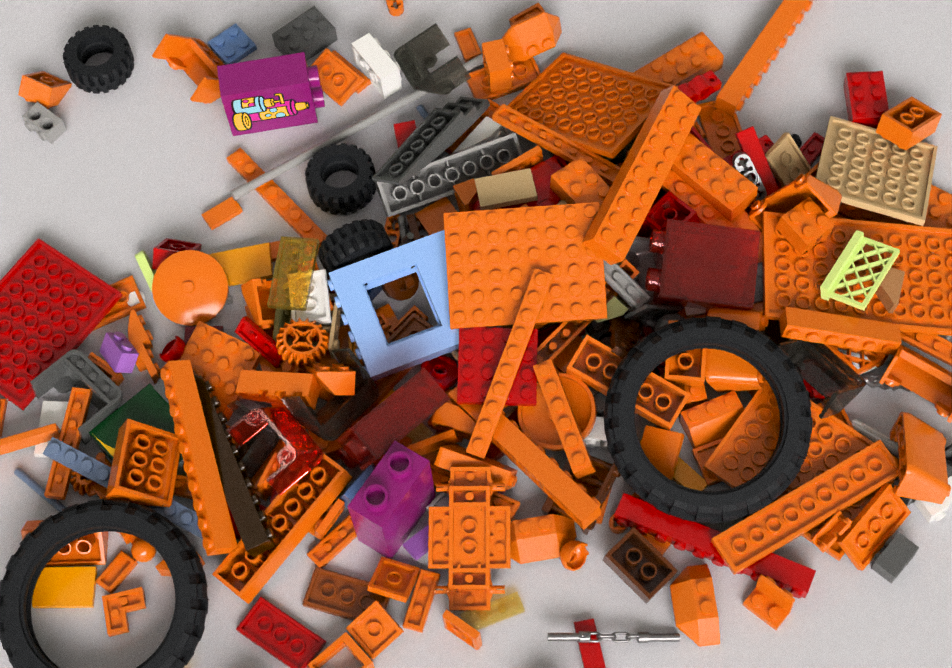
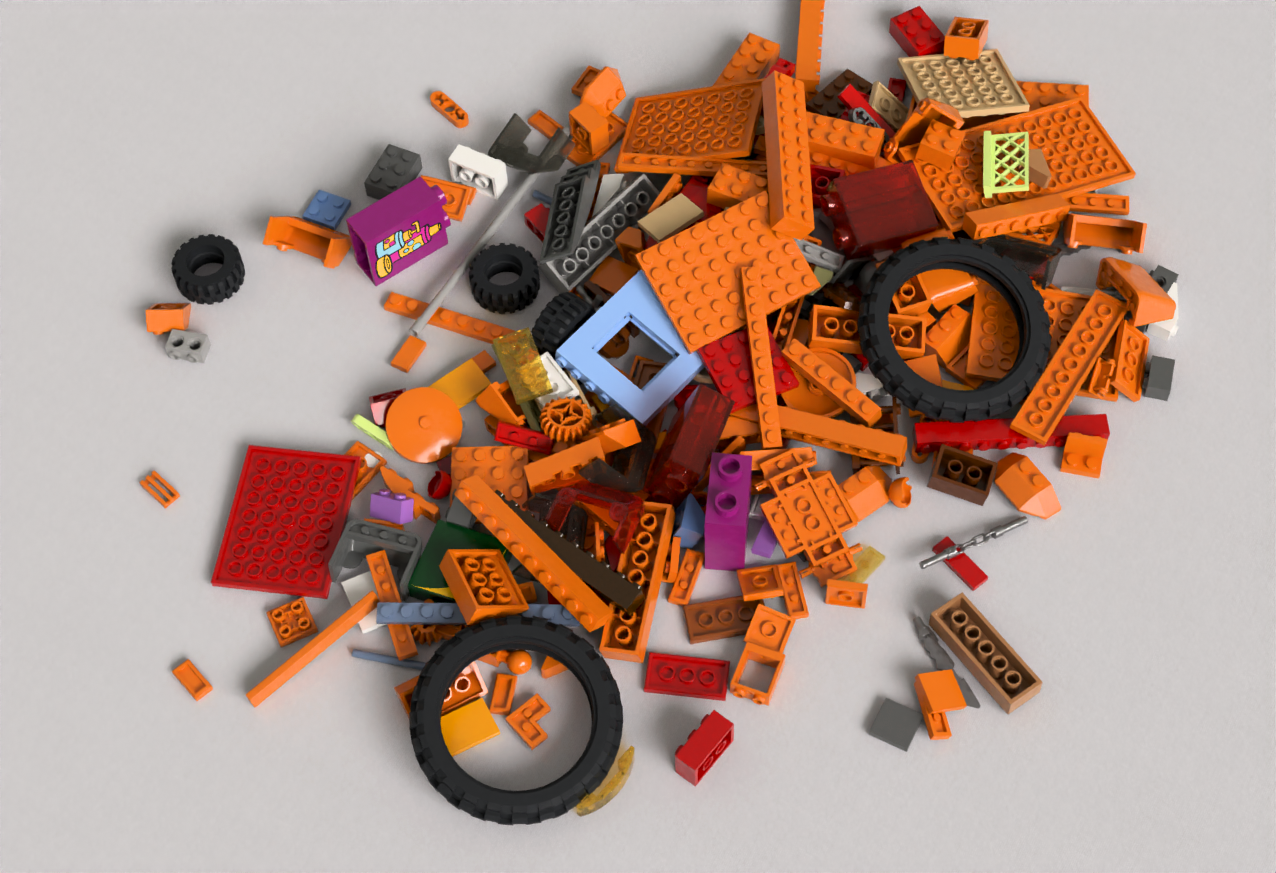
camera: 30 degrees left, 5 degrees down
(765, 122) = (828, 103): none -> reddish brown plate

